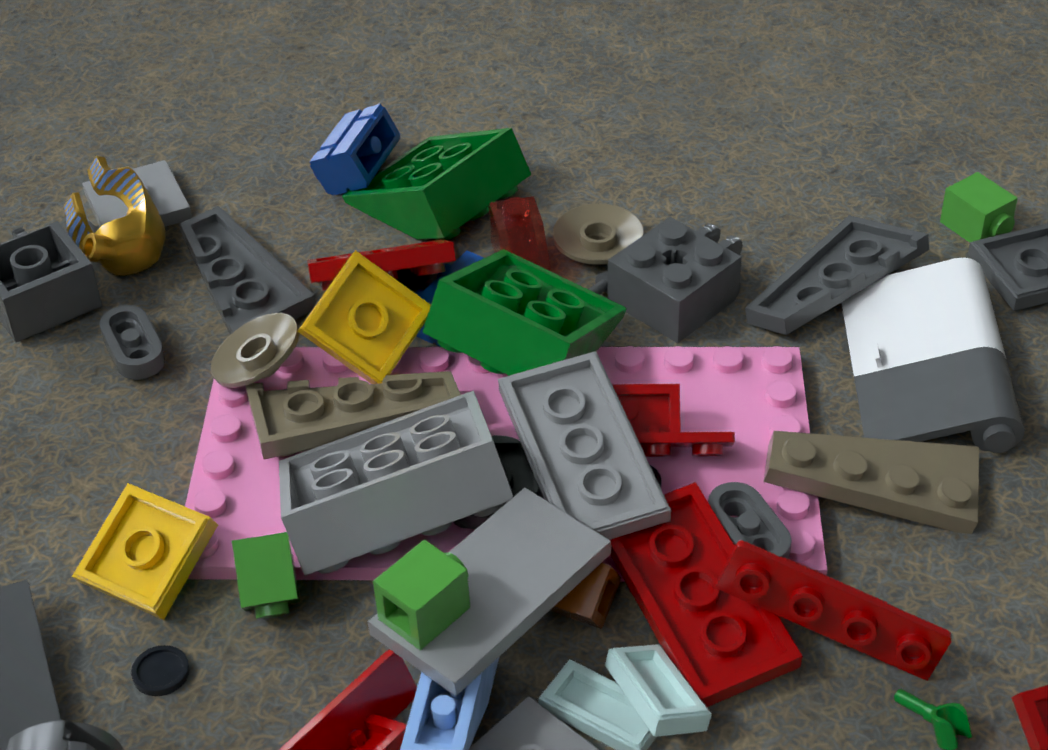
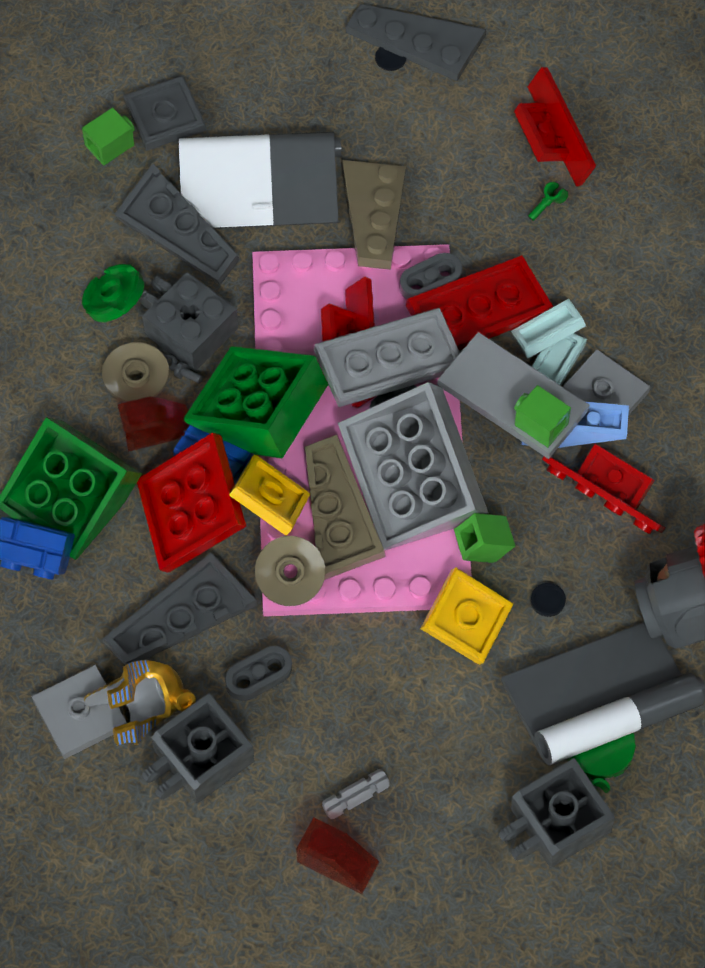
camera: 95 degrees left, 20 degrees up
(720, 210) = (113, 293): none -> green tile
(834, 609) = (488, 236): red bracket -> none

